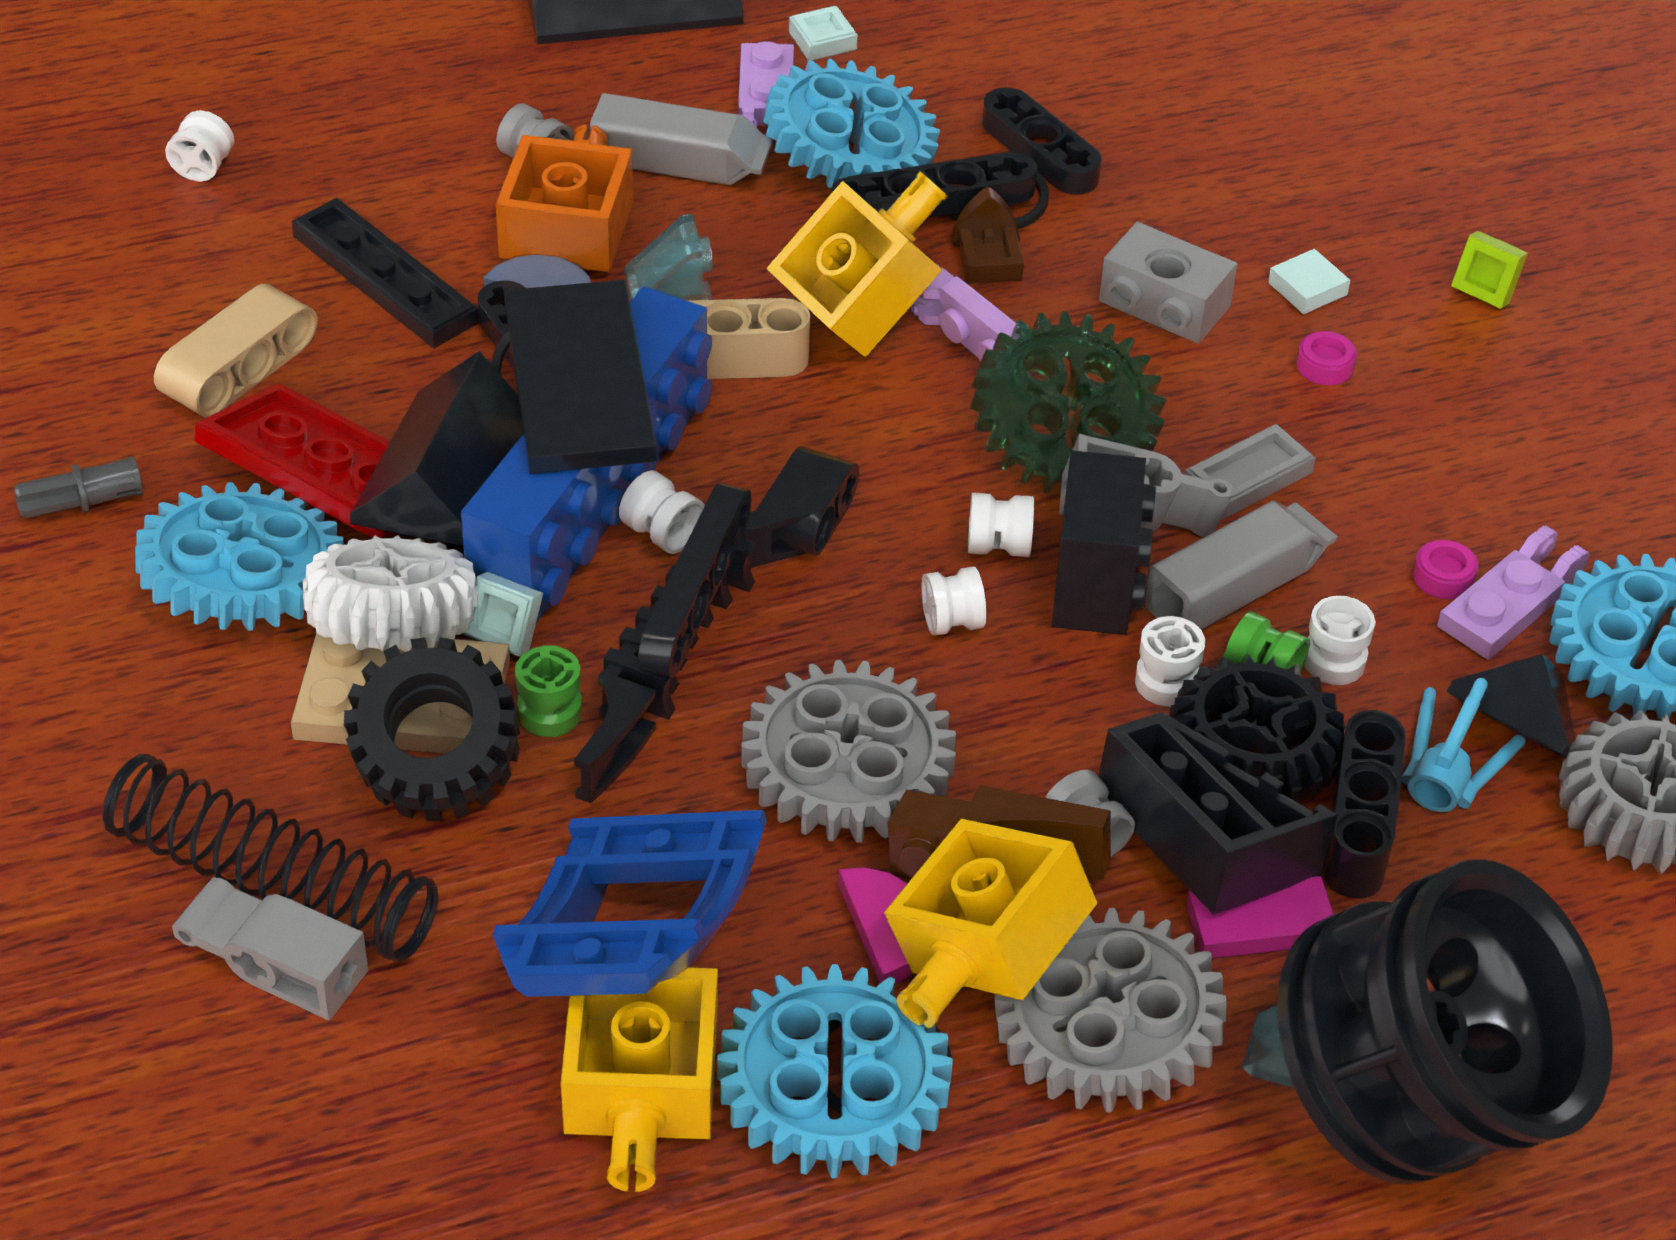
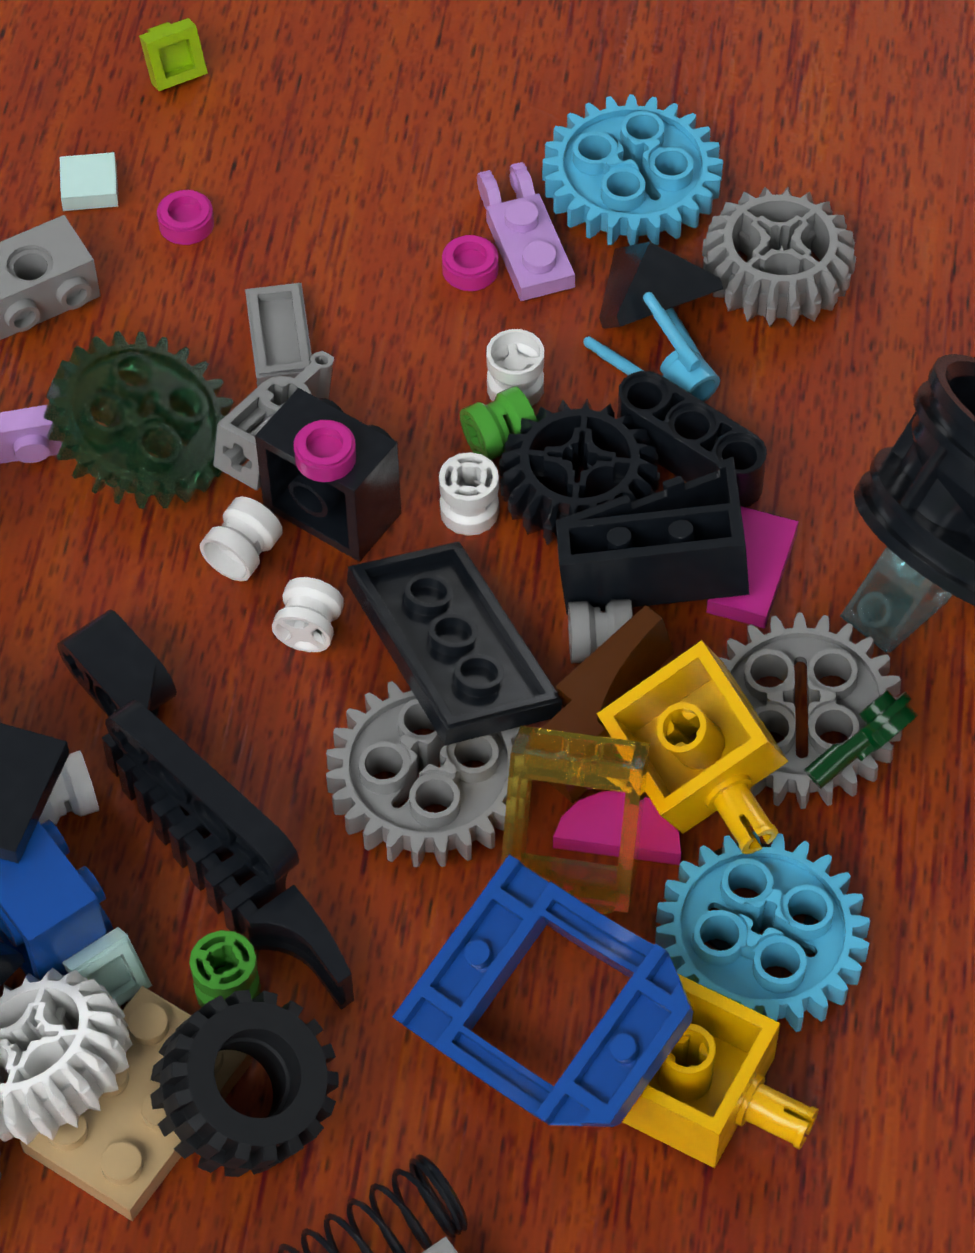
camera: 60 degrees left, 10 degrees up
(844, 784) = (586, 763): none -> clear yellow window
(989, 705) = (453, 643): none -> black tile
(1084, 497) = (325, 450): none -> dark pink tile
(1117, 1057) = (883, 721): none -> dark green plate
(1236, 564) = (393, 389): light grey piece -> none

